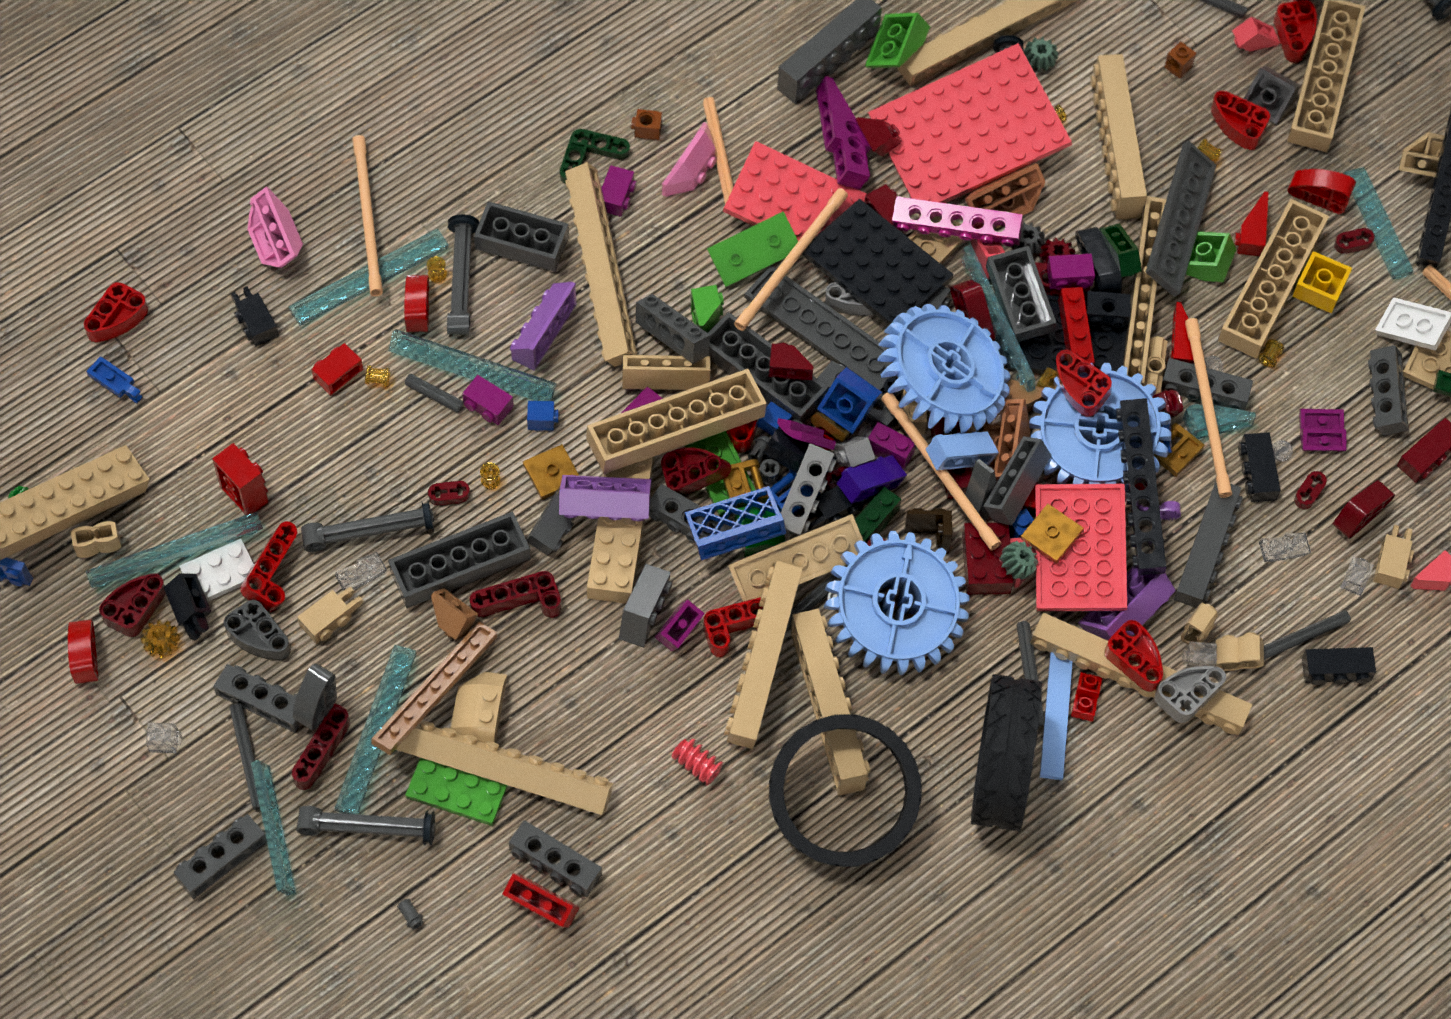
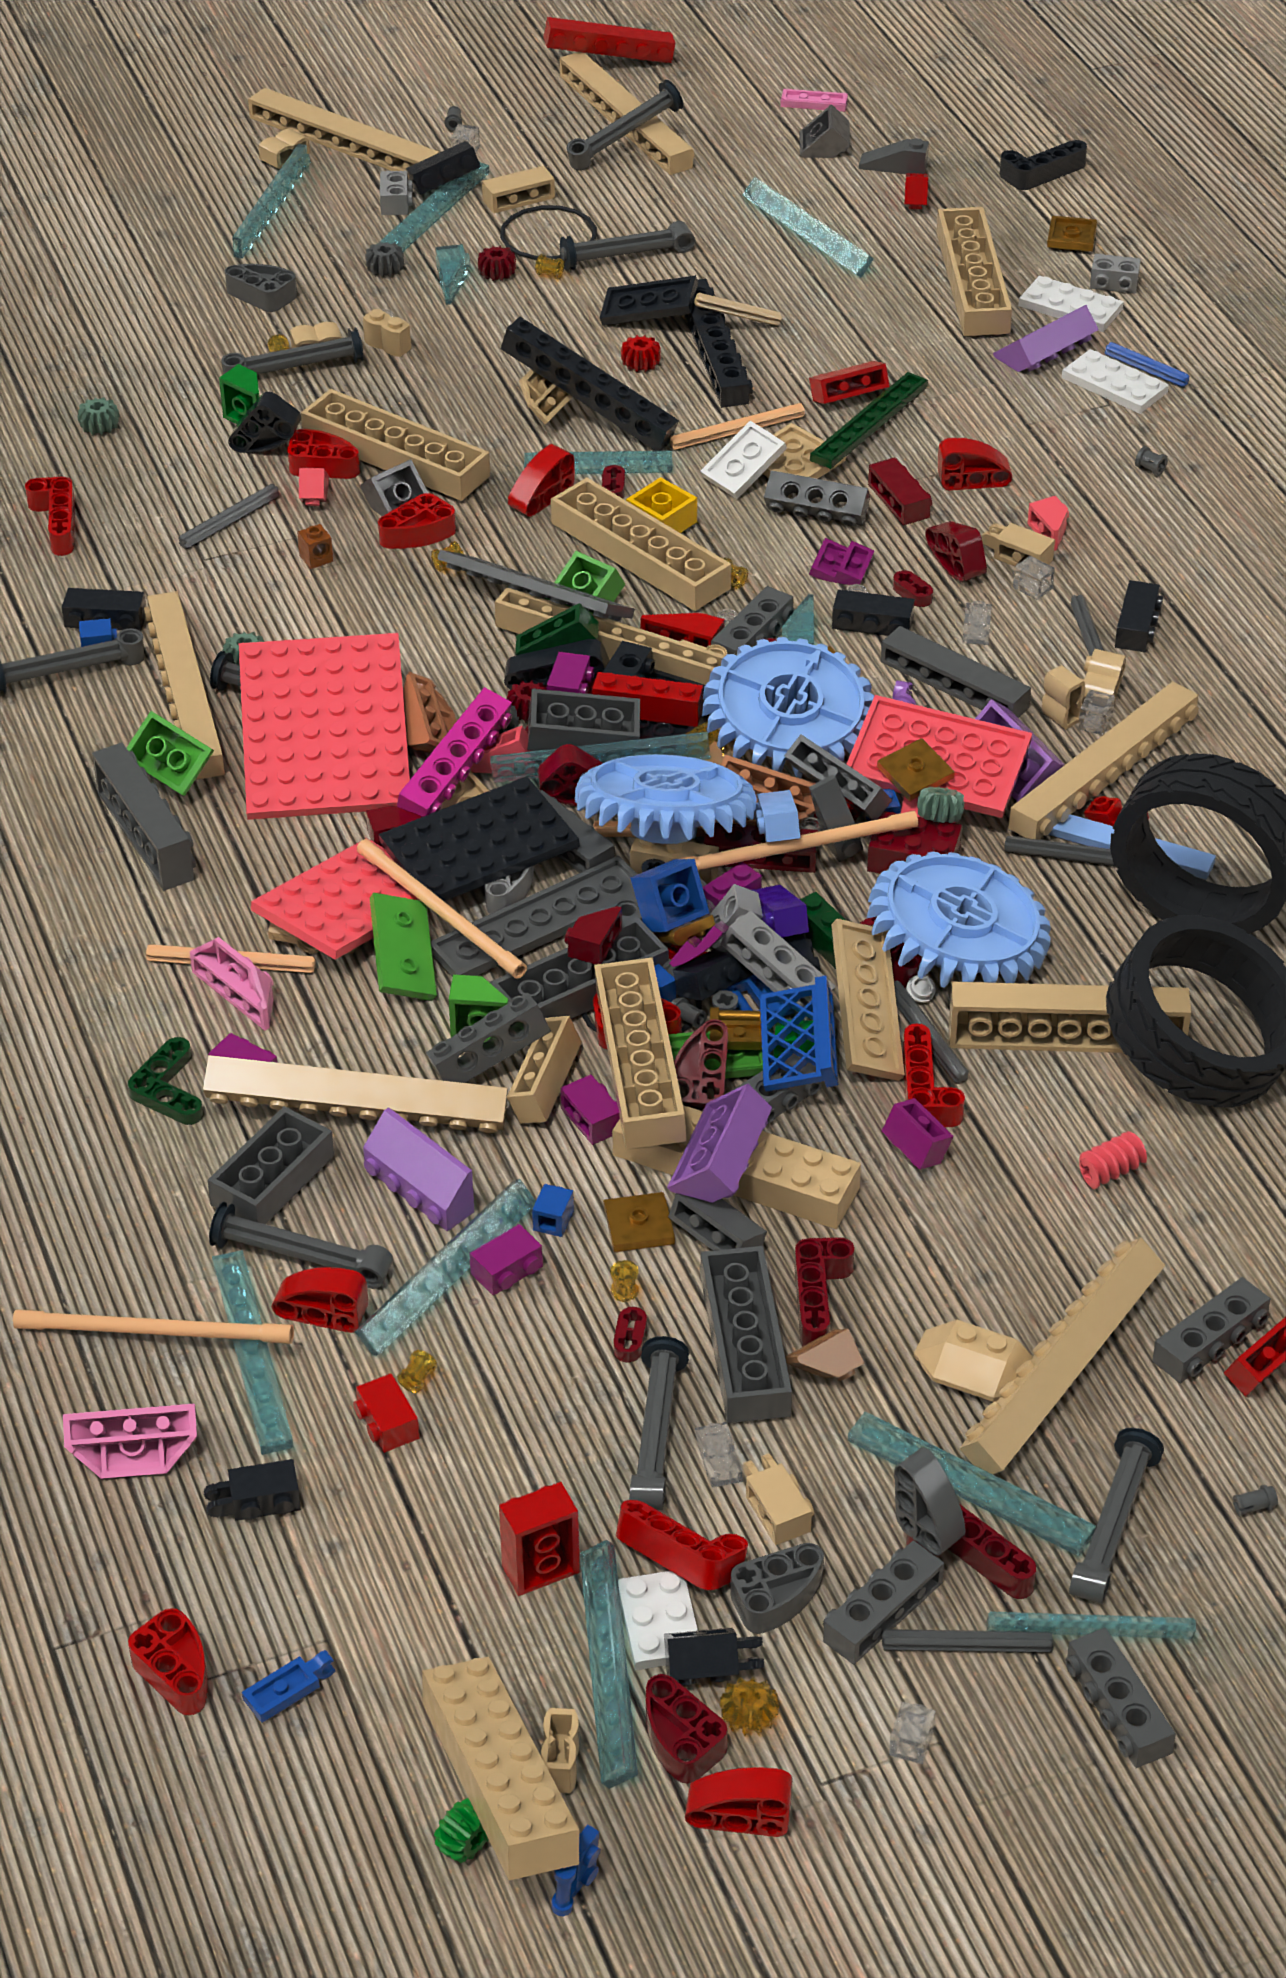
camera: 70 degrees left, 20 degrees down
(434, 392) = (467, 1318): dark grey axle -> none
(434, 688) = (945, 1389): medium nougat plate -> none
(436, 269) = (273, 1269): clear yellow bush -> none
(456, 791) = (1083, 1418): bright green plate -> none
(643, 605) = (885, 1160): wedge -> none
(650, 131) = (158, 1012): dark orange brick -> none
(764, 655) = (996, 1050): tan brick -> none
(842, 136) = (274, 834): magenta brick -> none
(879, 134) = (291, 800): dark red slope -> none
(931, 521) = (862, 871): dark brown bracket -> none
(1080, 389) = (738, 686): red beam -> none
(1118, 137) = (389, 605): tan brick -> none
(1137, 411) = (888, 675): black brick -> none
(1137, 648) = (1094, 742): red beam -> none
(1182, 688) = (1152, 715): light grey beam -> none
(1222, 477) = (885, 632): light nougat piece -> none
(1252, 234) = (561, 542): red slope -> none

